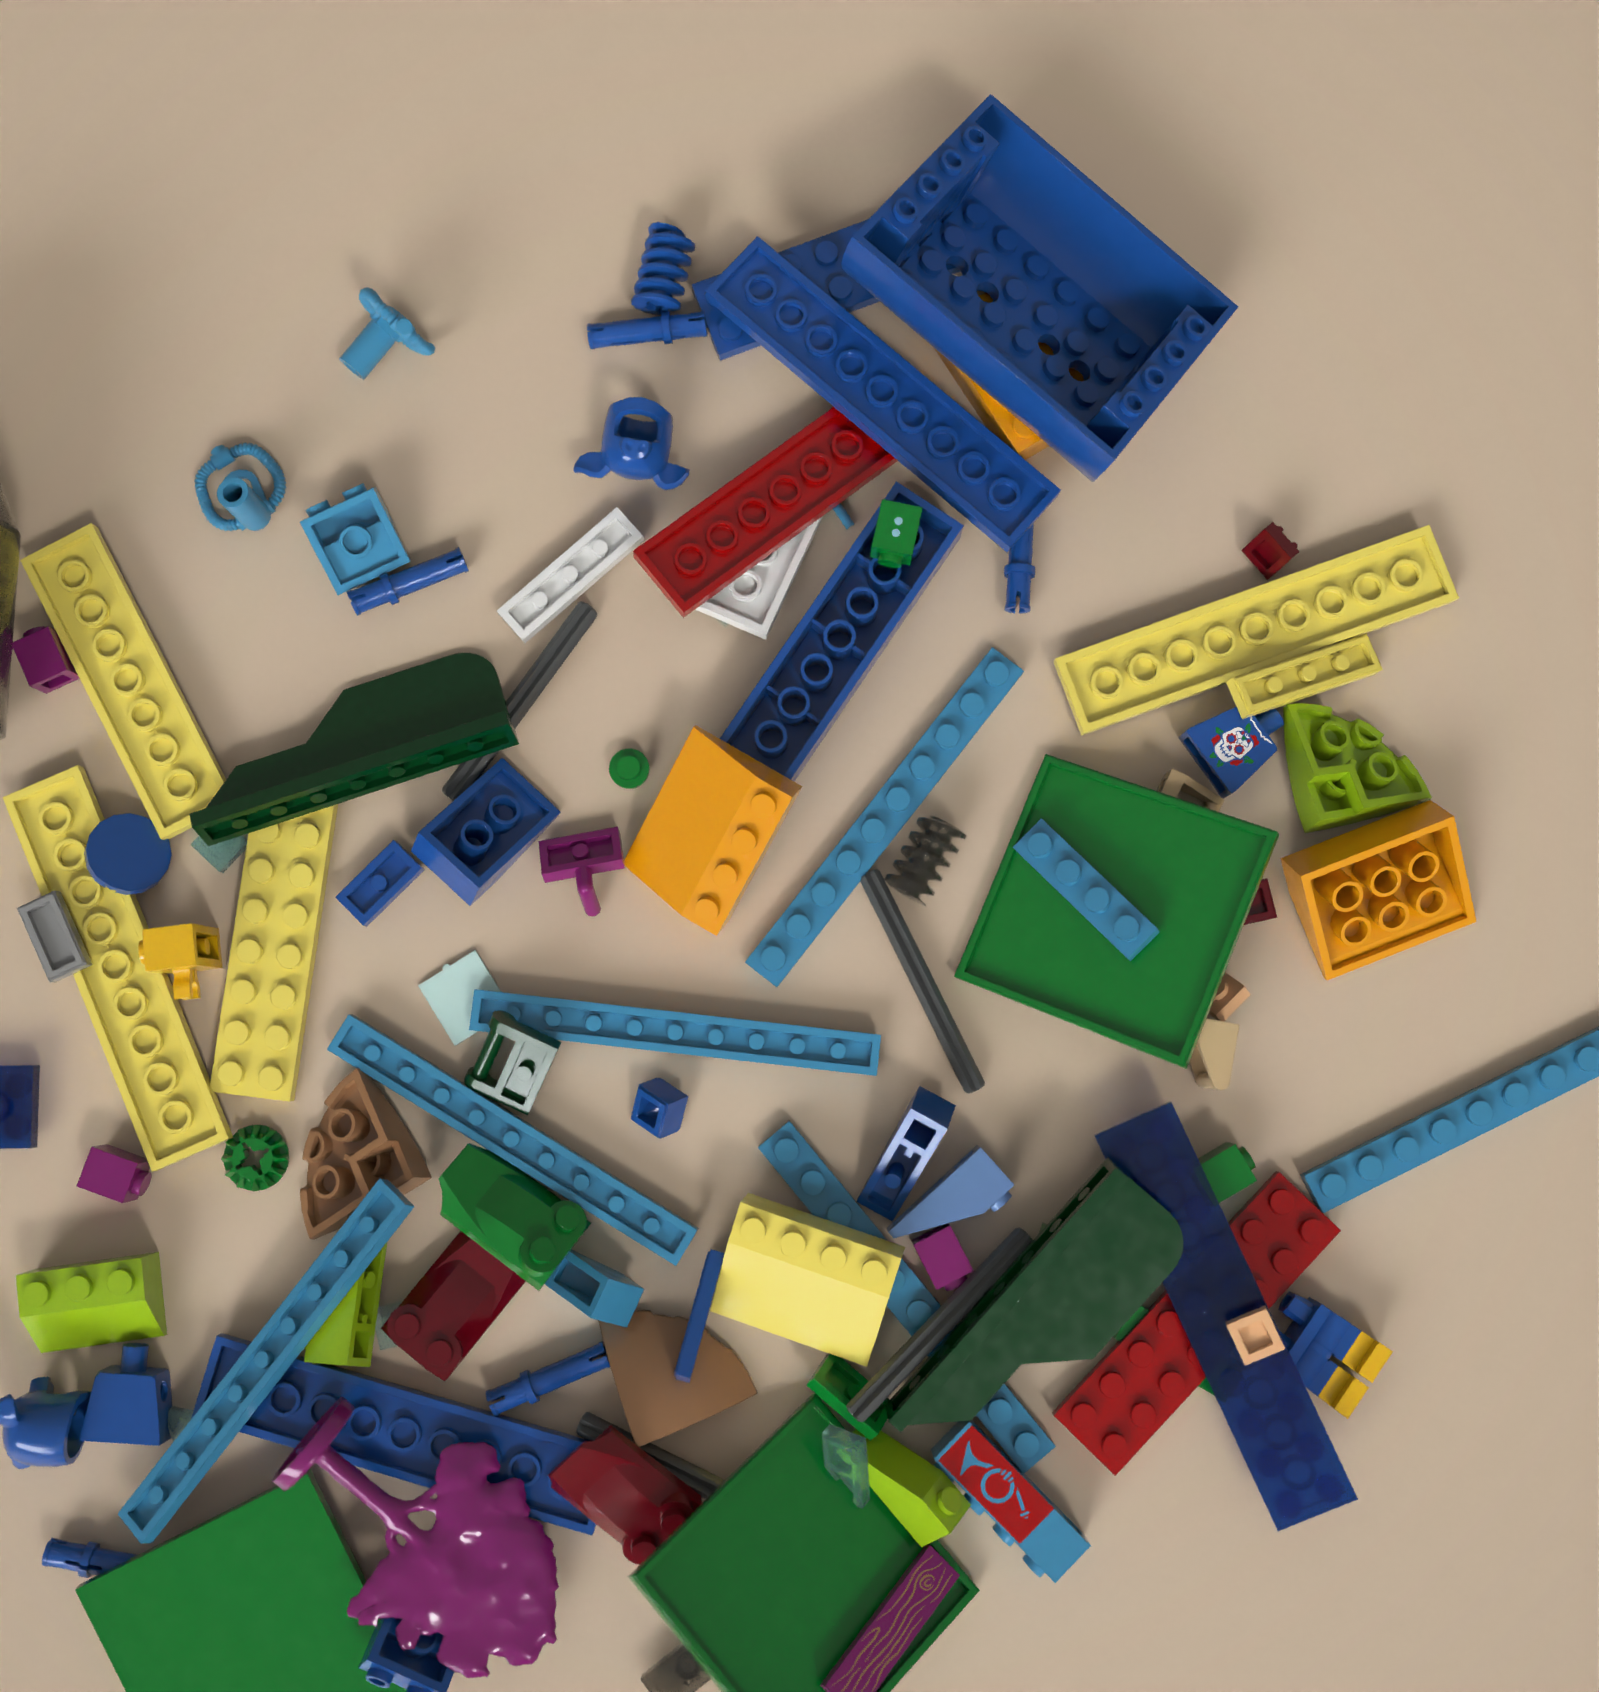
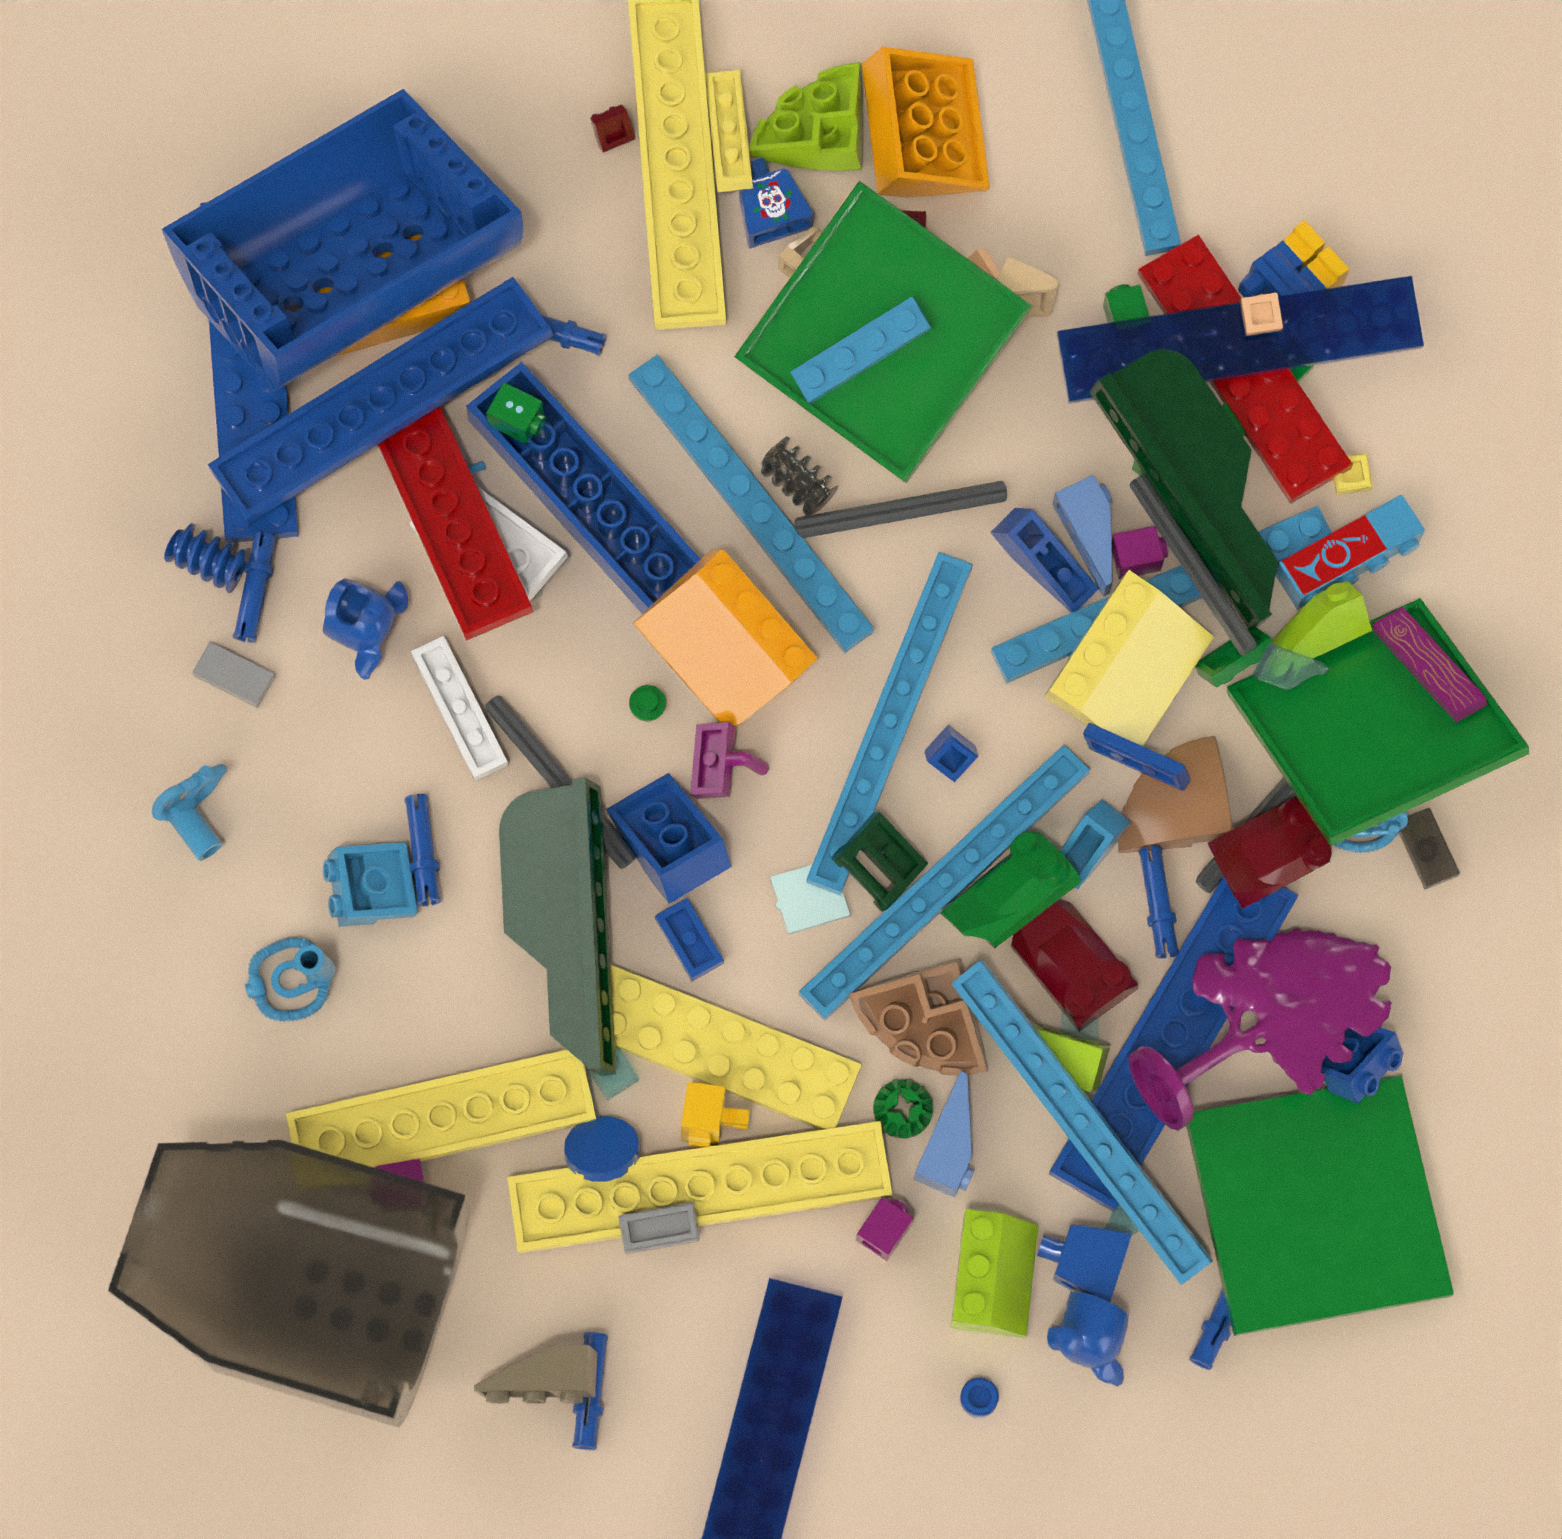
camera: 80 degrees left, 10 degrees down
(208, 1218) = (949, 1149): none -> medium blue slope
(549, 338) = (233, 674): none -> light grey tile
(1102, 1481) = (1356, 479): none -> light yellow tile

